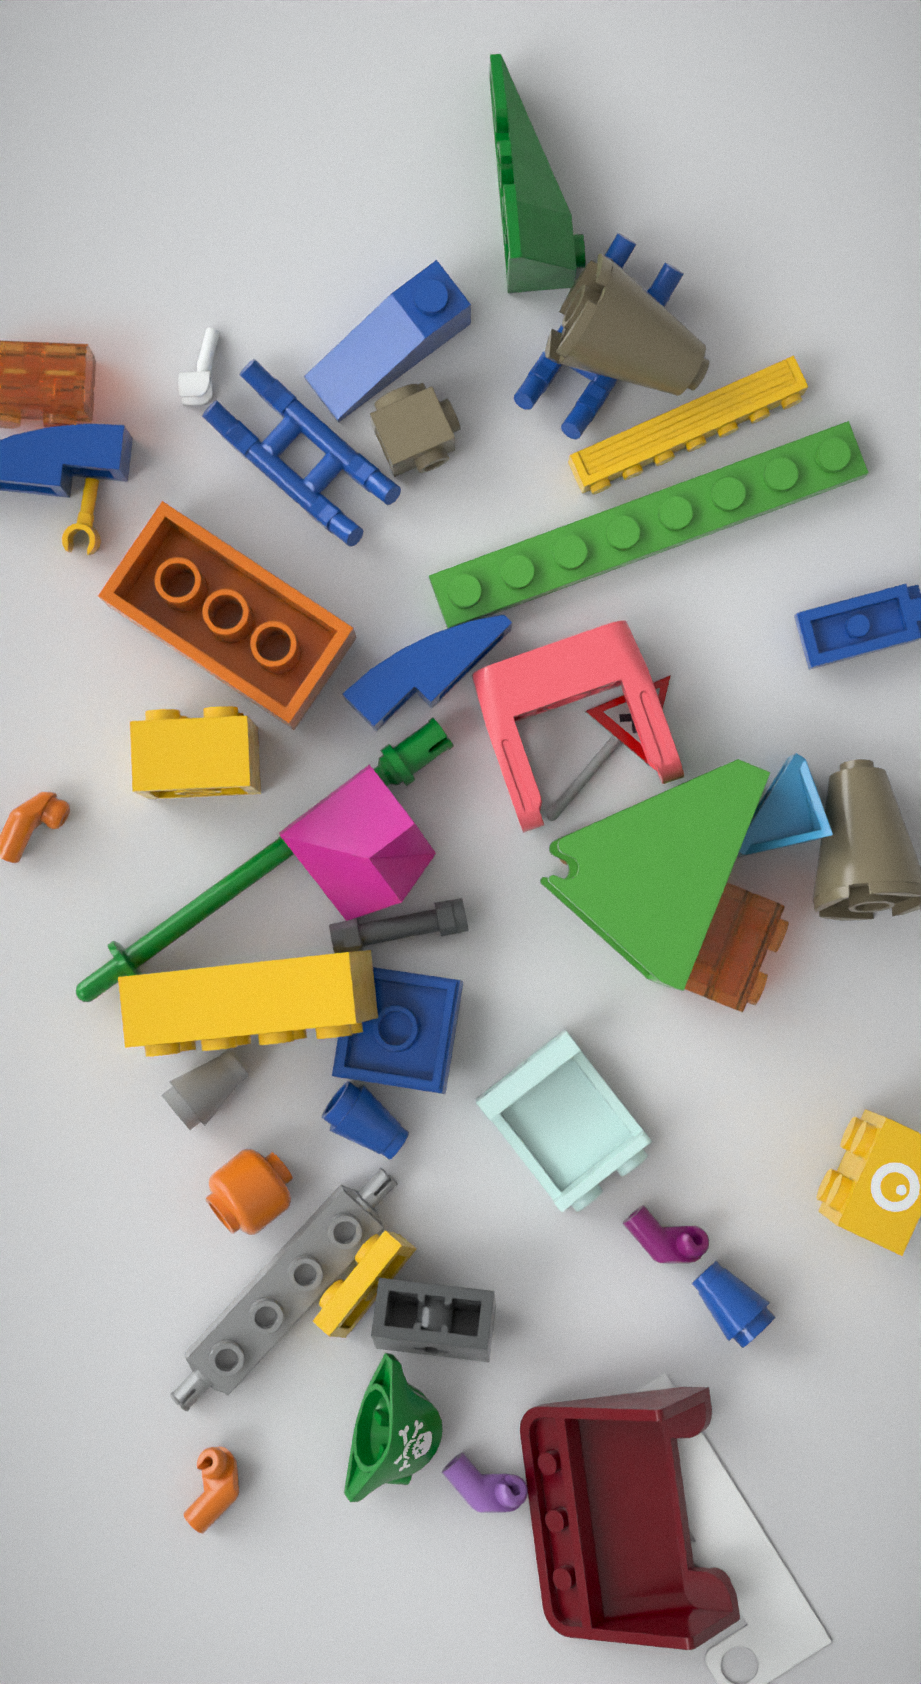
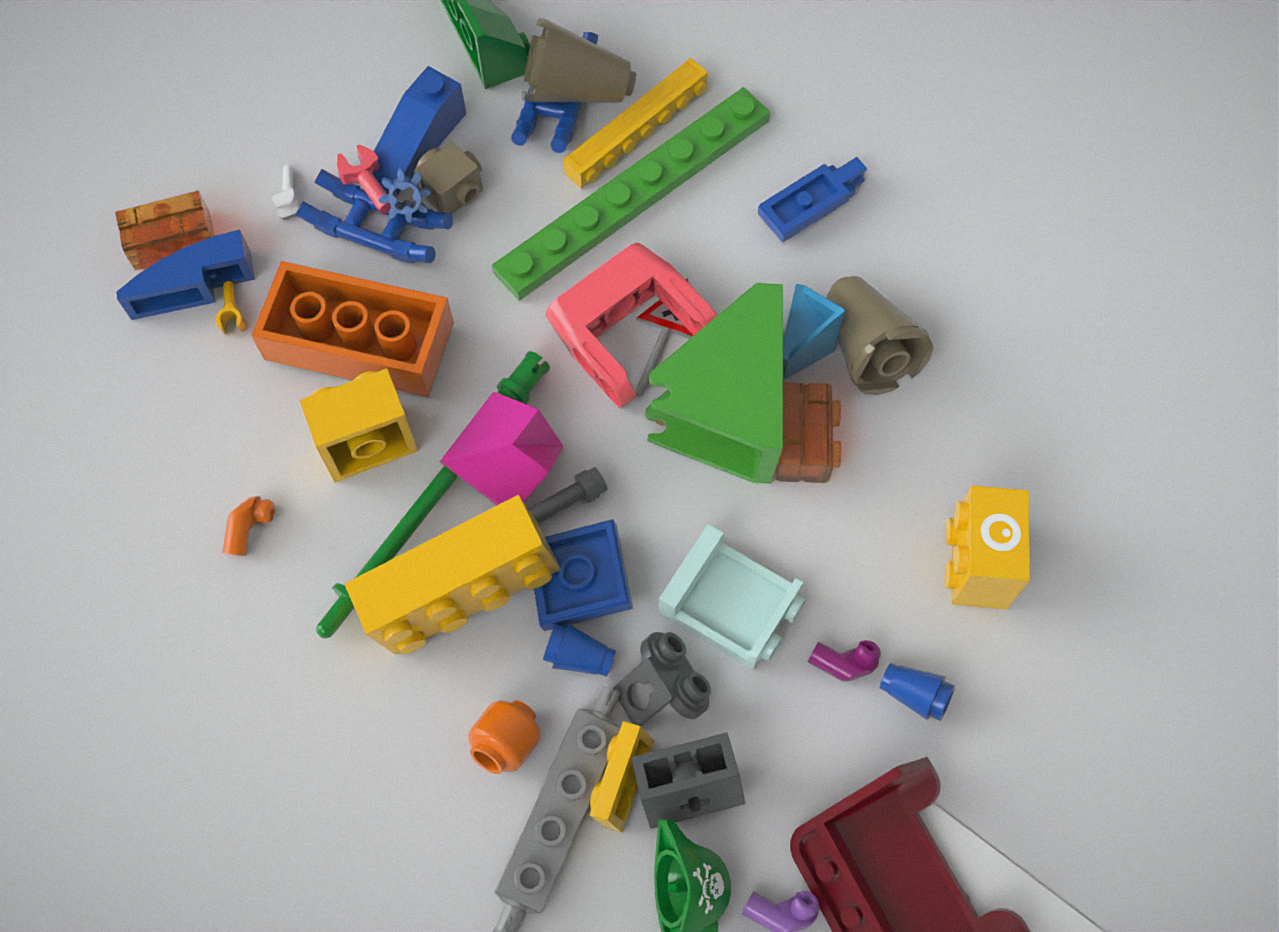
camera: 20 degrees left, 20 degrees down
(204, 1089) = (440, 675): light grey cone -> none
(306, 395) = (364, 175): none -> coral bar
(346, 449) = (407, 206): none -> medium blue gear
(424, 668) = (509, 322): blue slope -> none
(458, 1190) = (669, 676): none -> dark grey bracket

